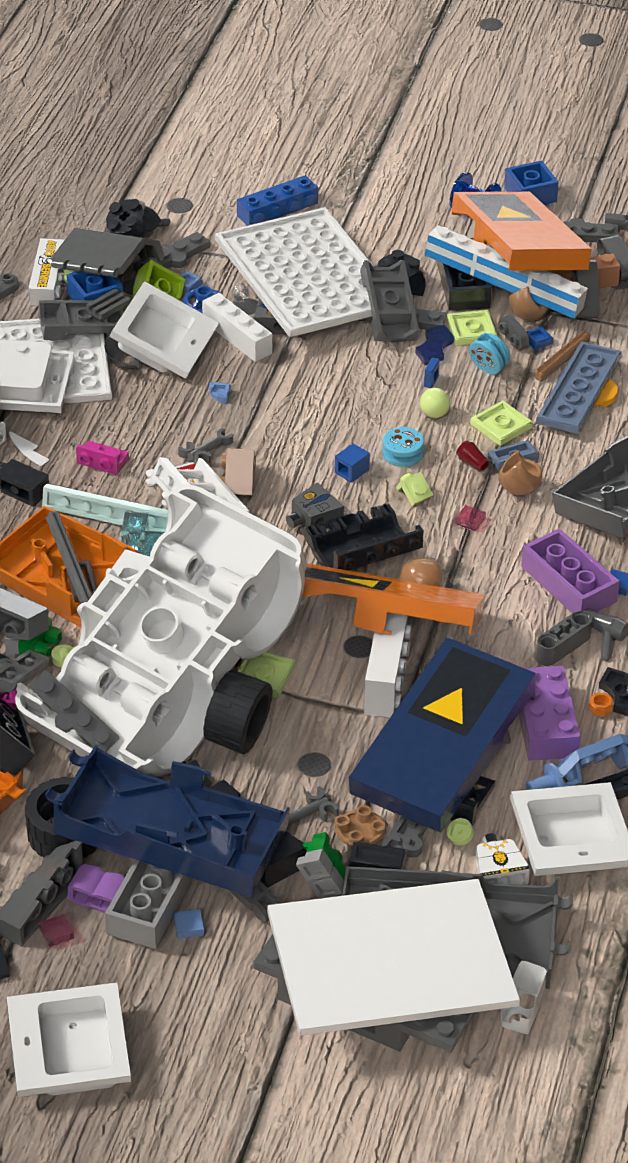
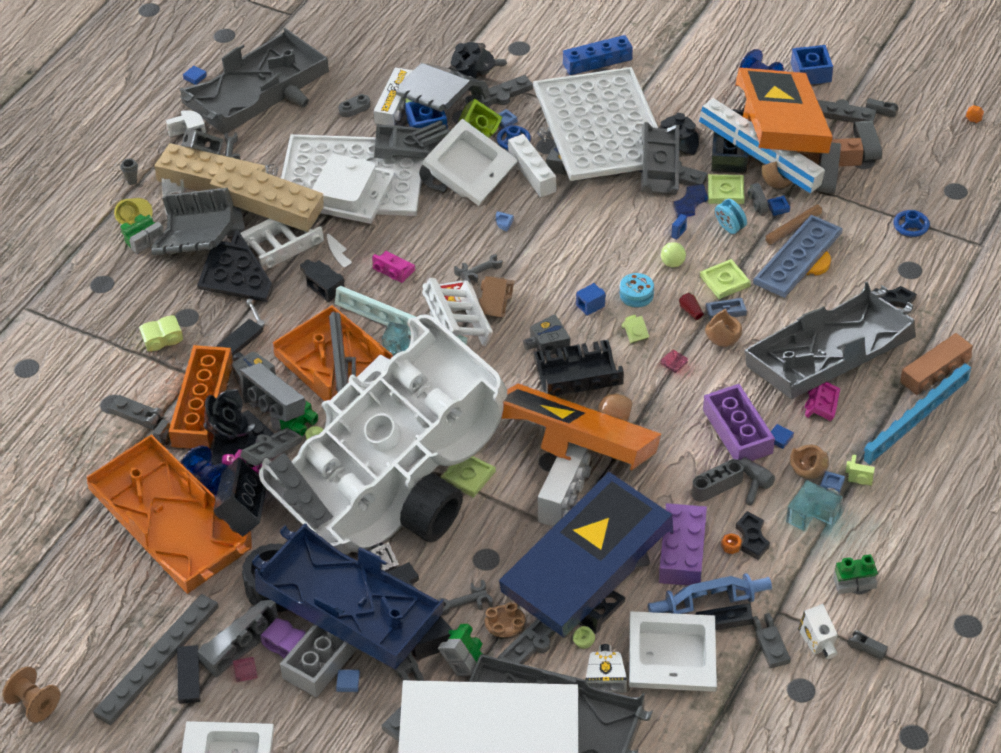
camera: 15 degrees right, 5 degrees up
(376, 856) = (508, 649): black tile -> none

